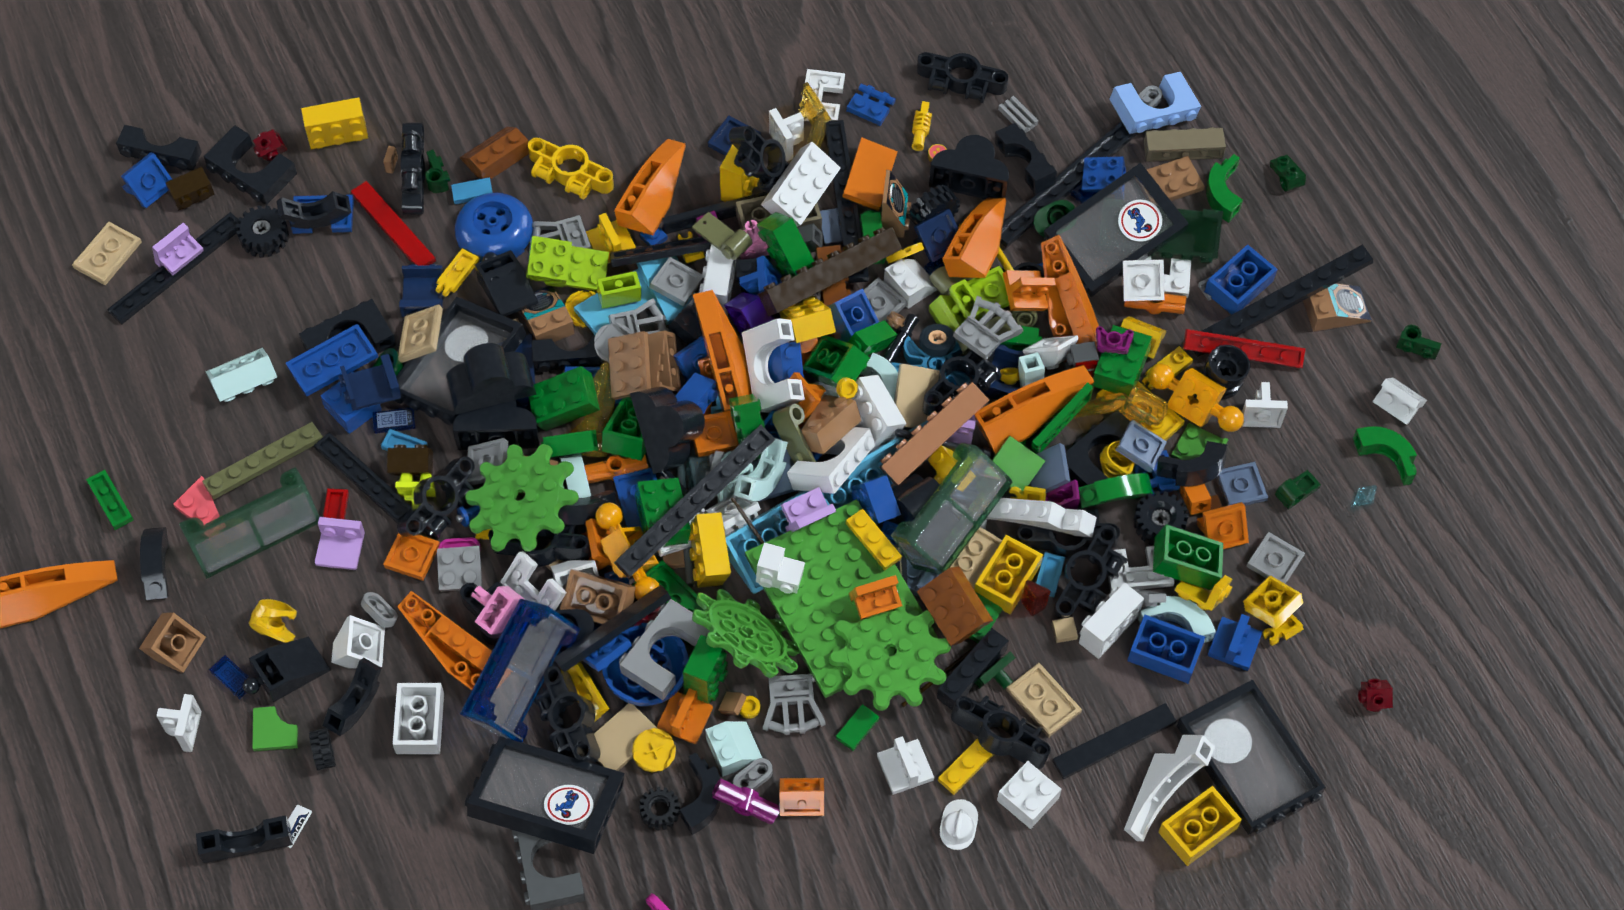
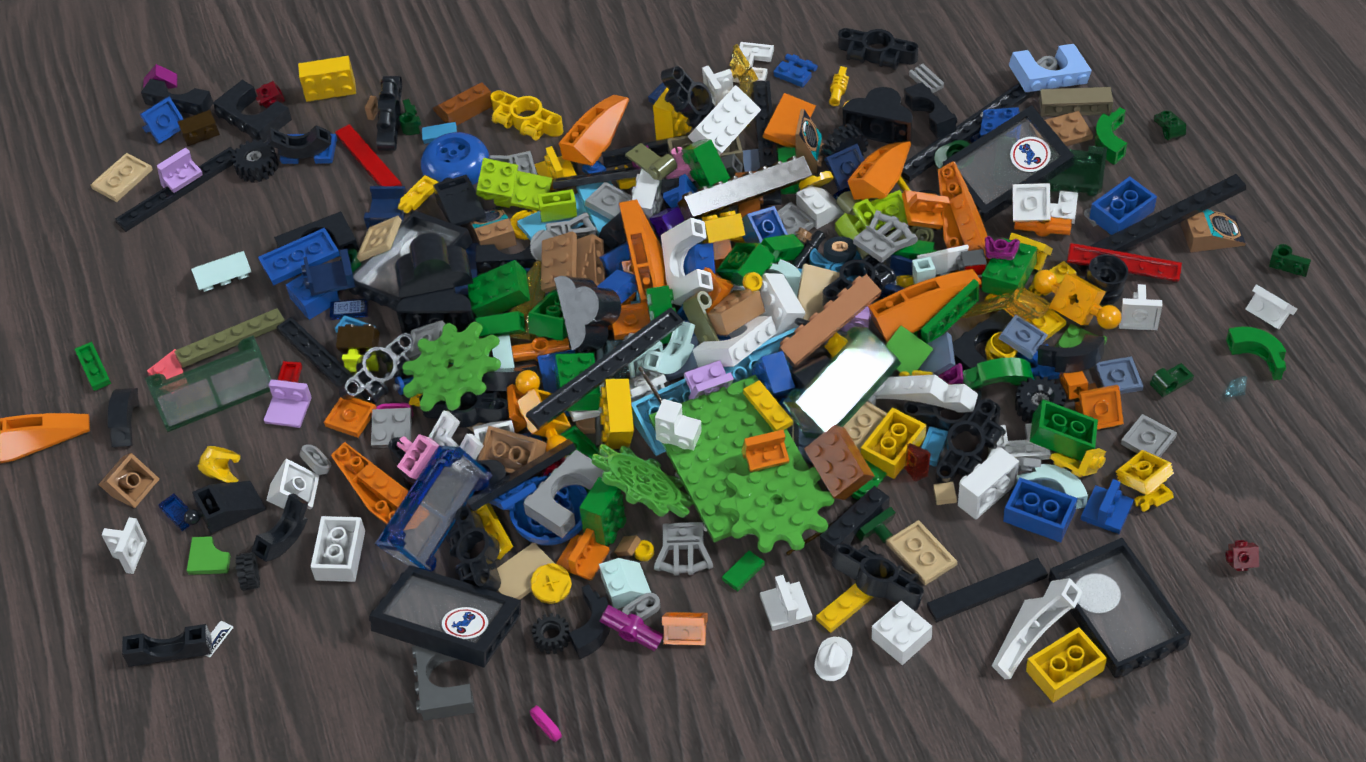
camera: 10 degrees right, 10 degrees down
(135, 117) = (162, 74): none -> magenta slope

